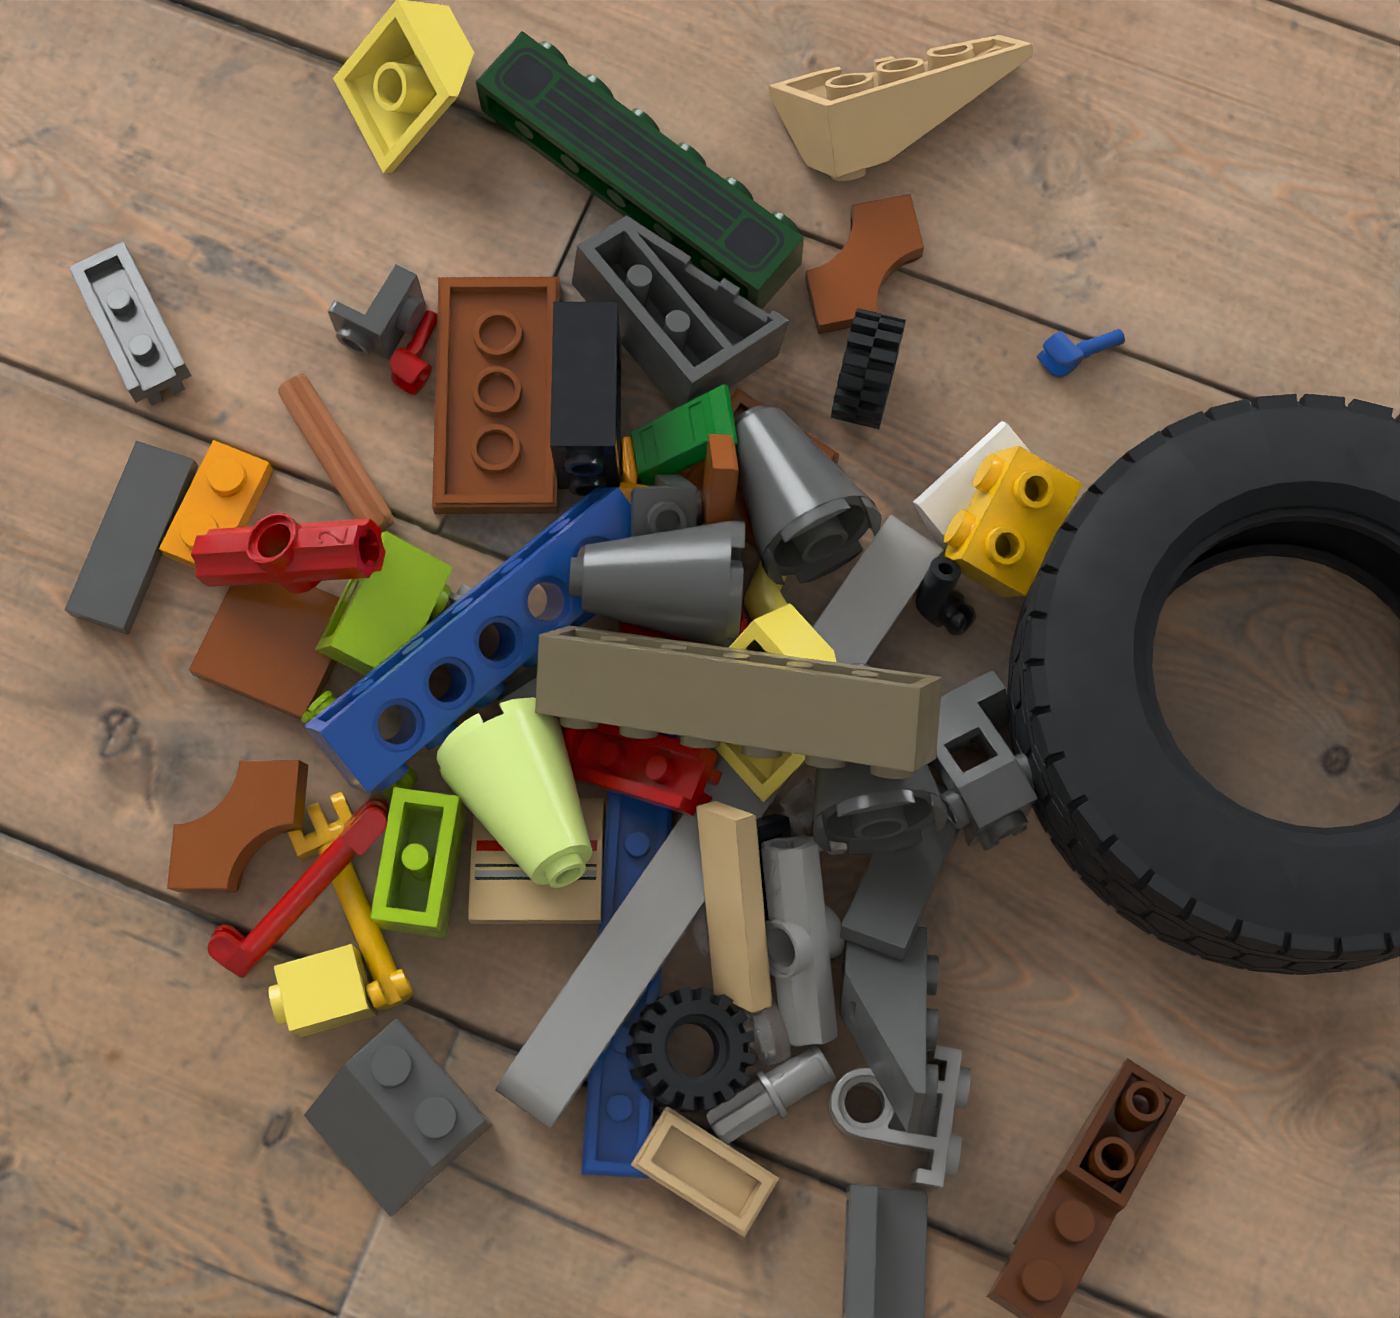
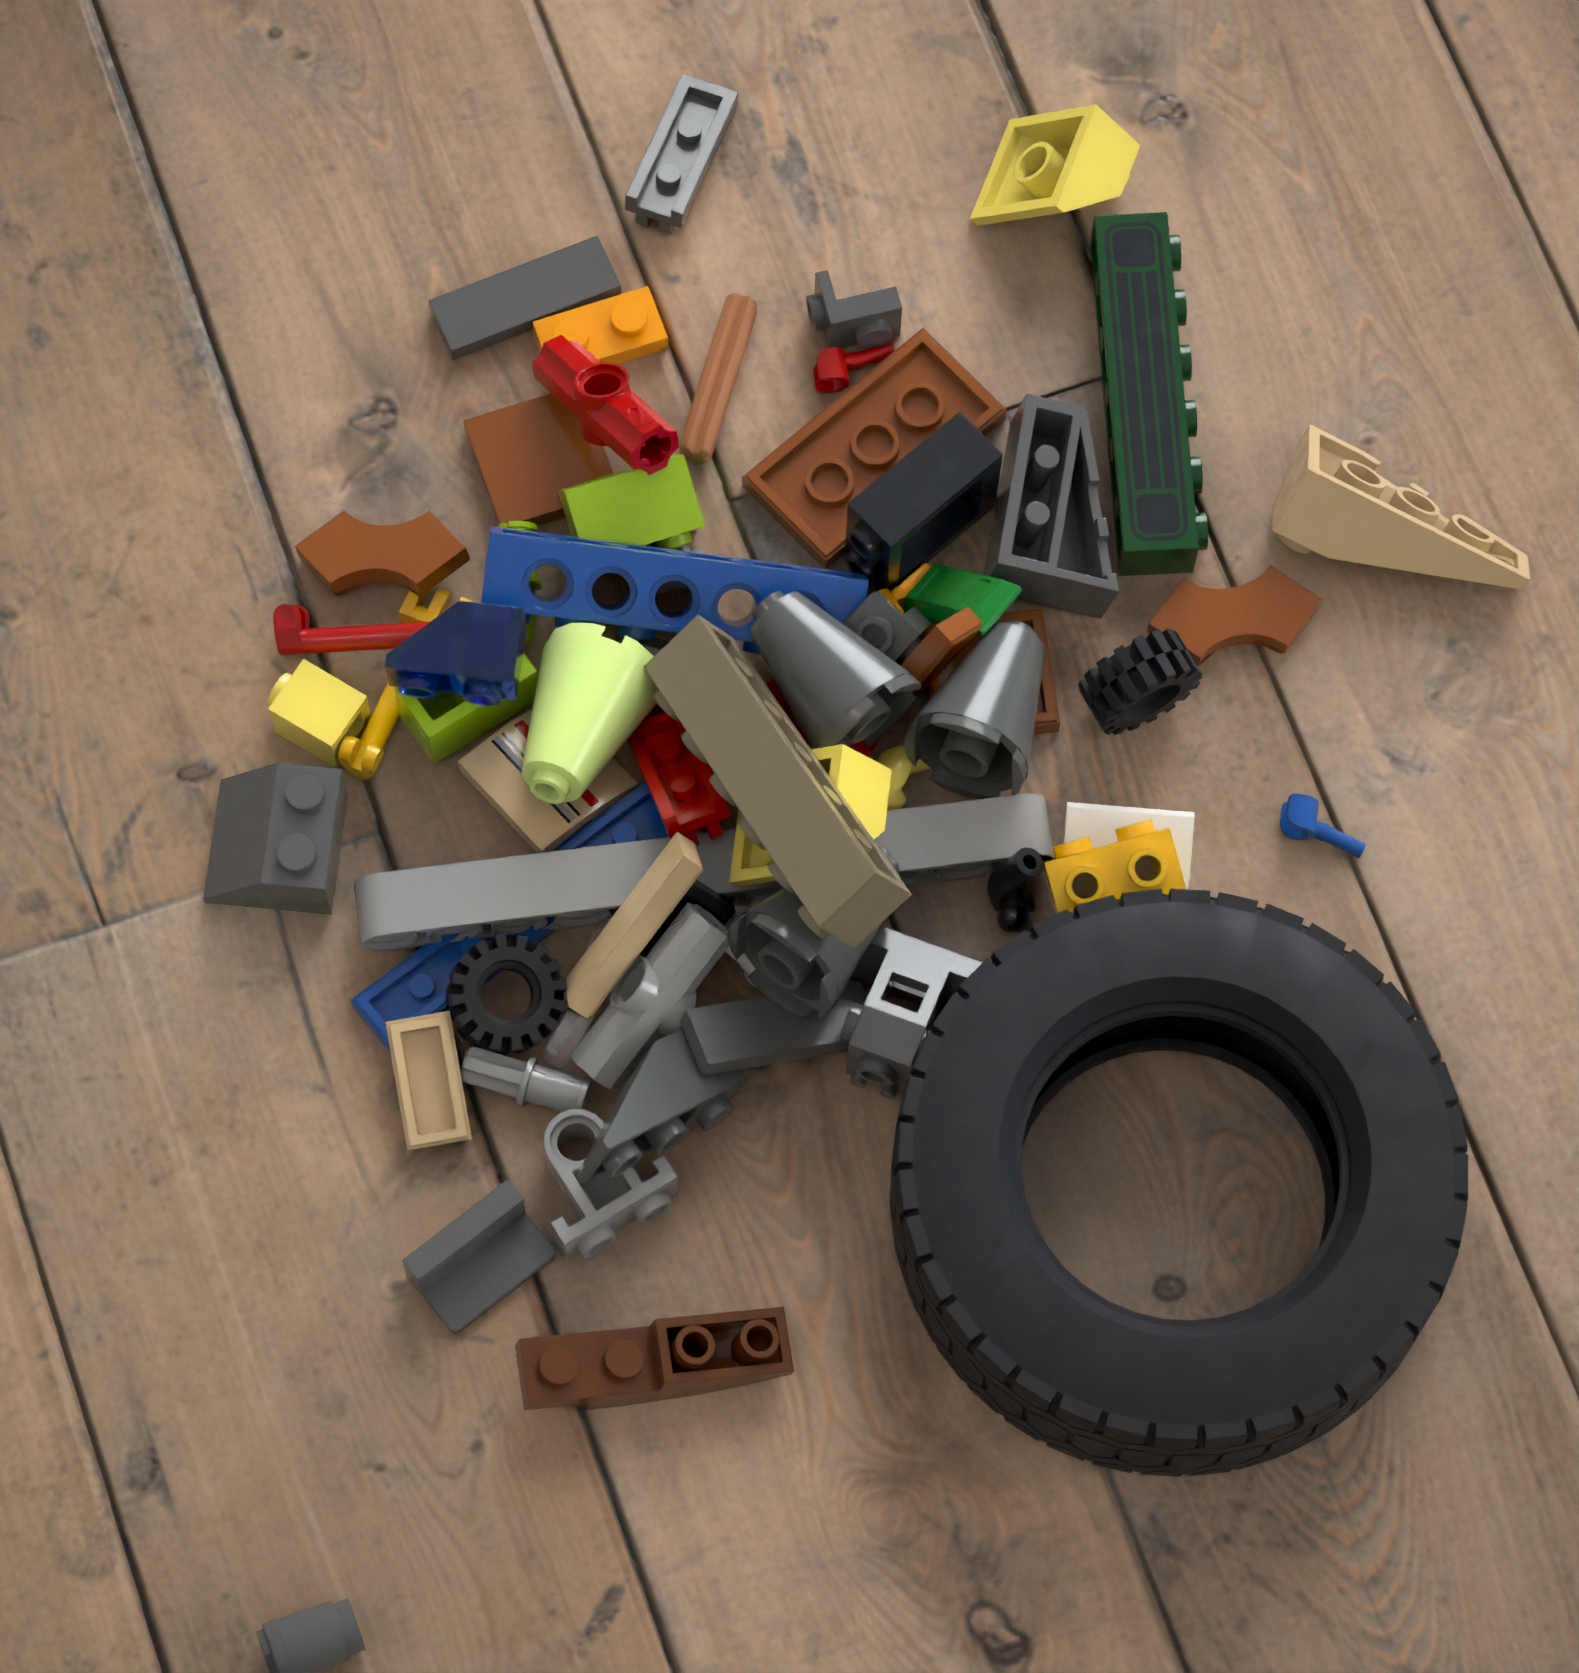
camera: 45 degrees right, 5 degrees down
(398, 838) = (465, 652): none -> clear blue slope

